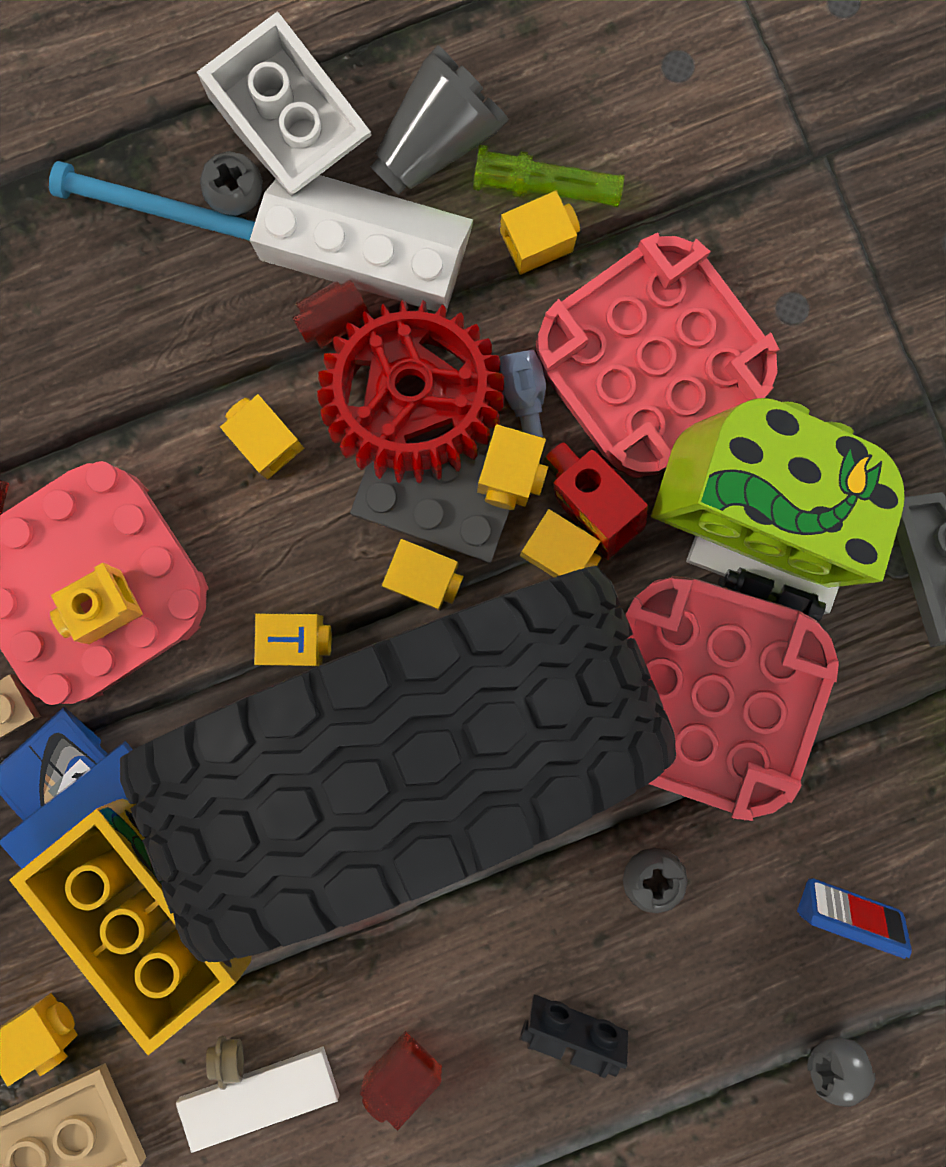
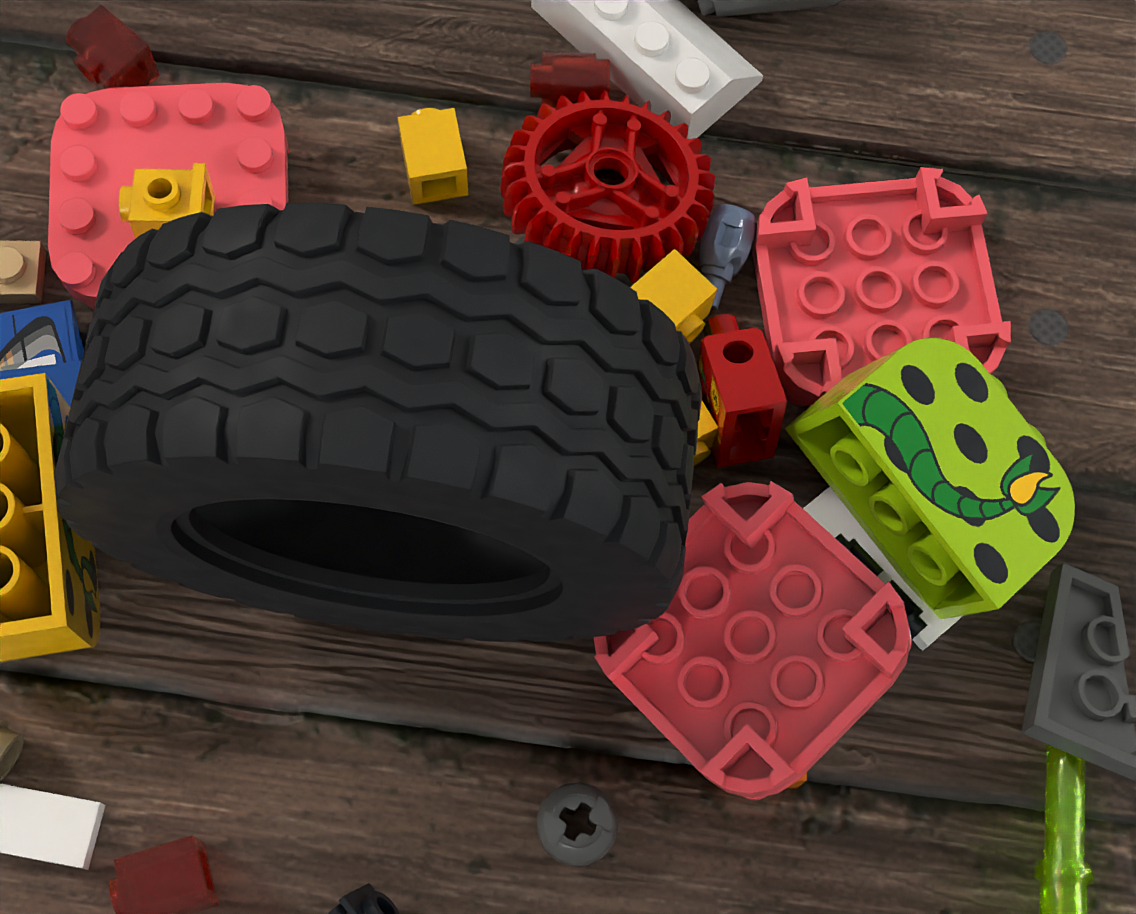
camera: 25 degrees right, 15 degrees down
(515, 173) = (836, 59): clear neon green pin -> none
(539, 231) = (823, 115): yellow brick -> none

